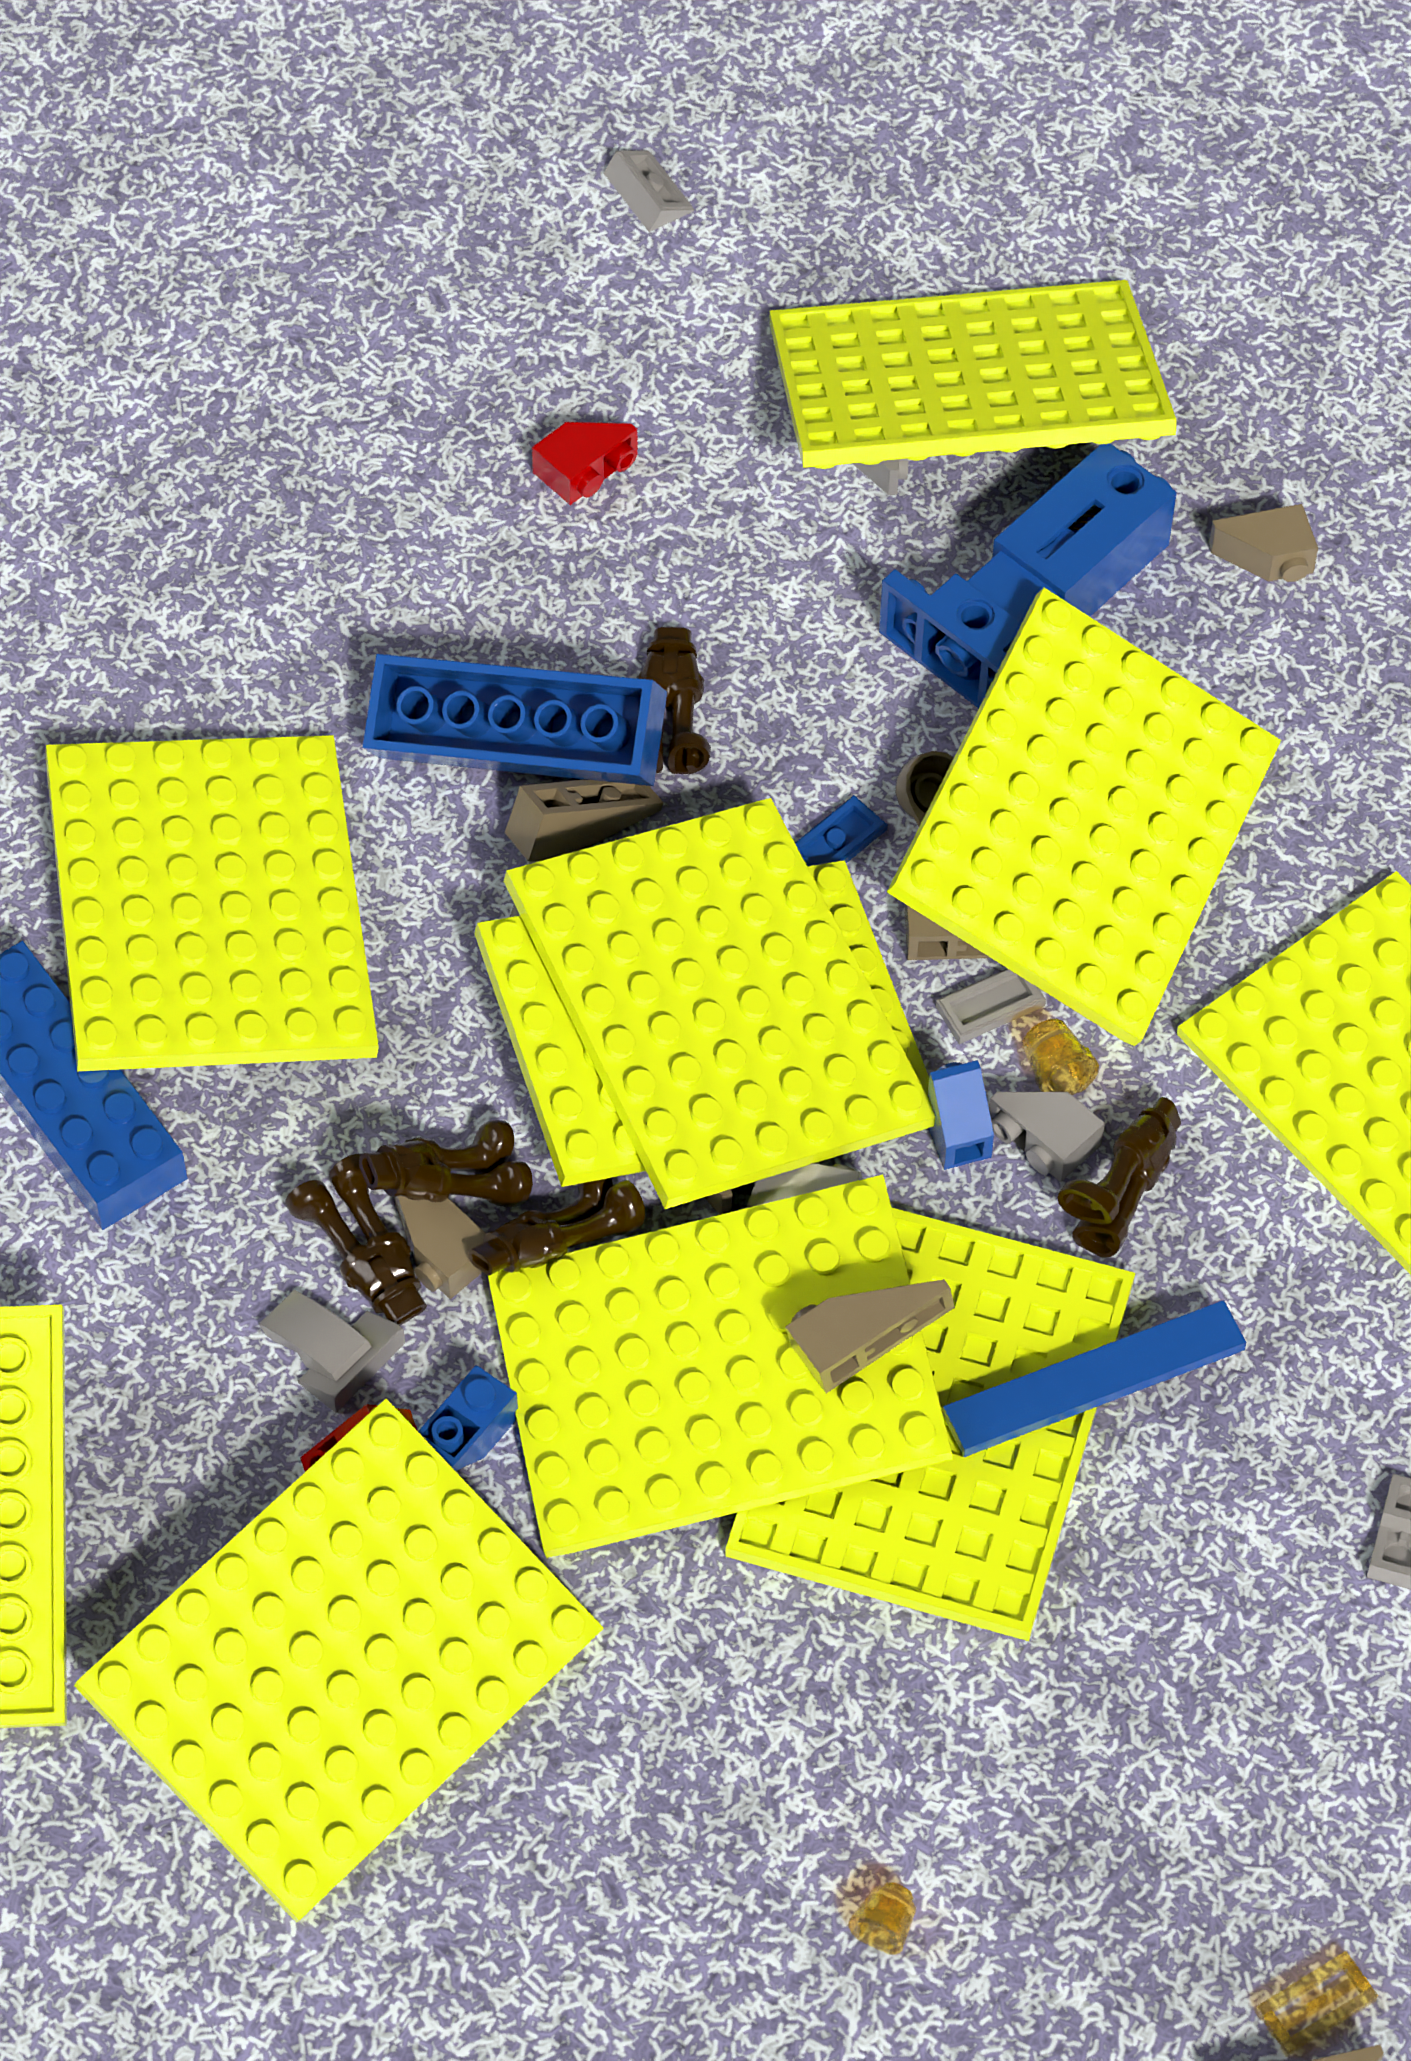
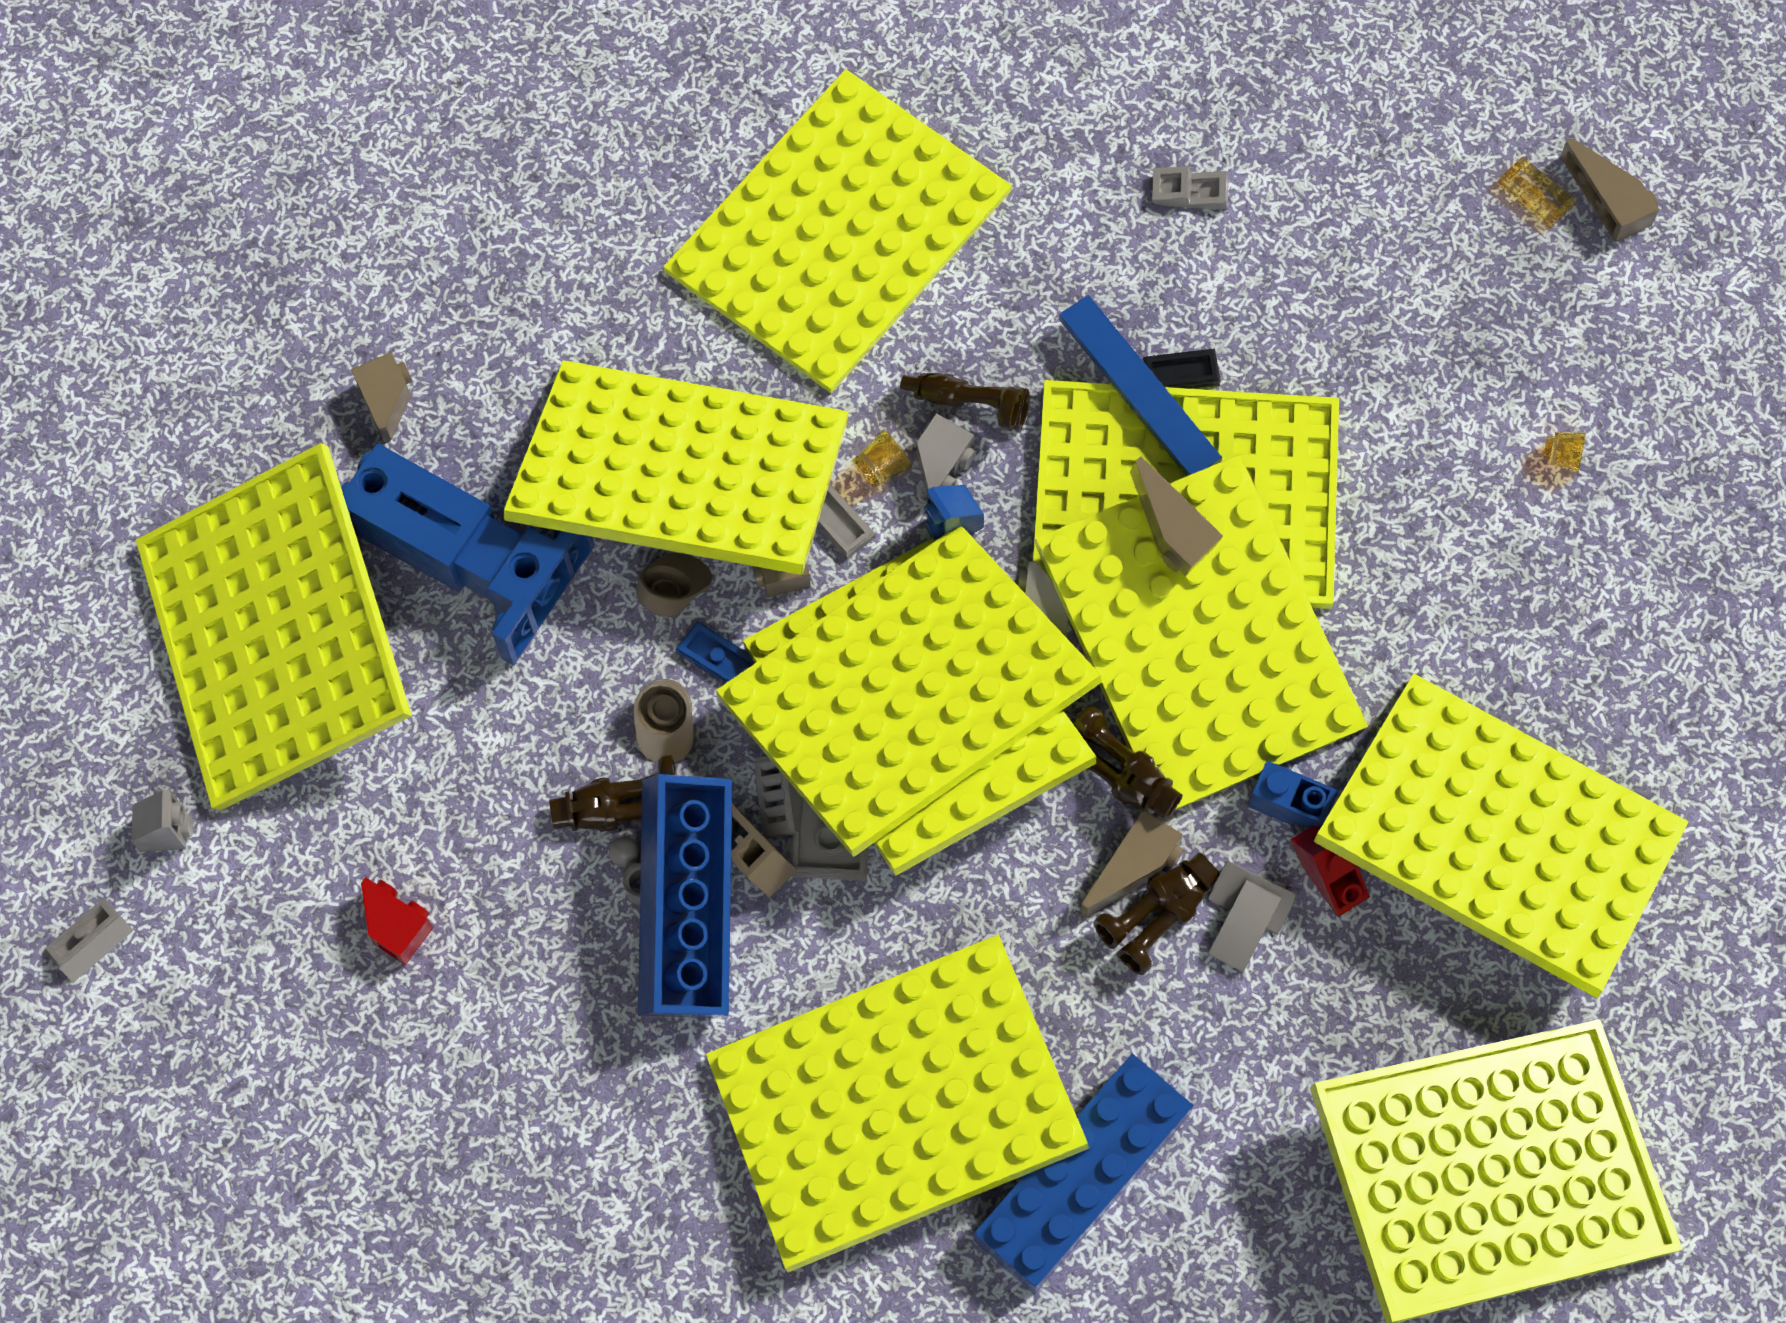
camera: 100 degrees left, 10 degrees up
(423, 1168) = (1109, 869): dark brown piece -> none
(758, 259) = (160, 823): none -> light grey slope
(765, 758) = (664, 720): none -> dark tan cap
(1120, 1454) = (1185, 369): none -> black tile

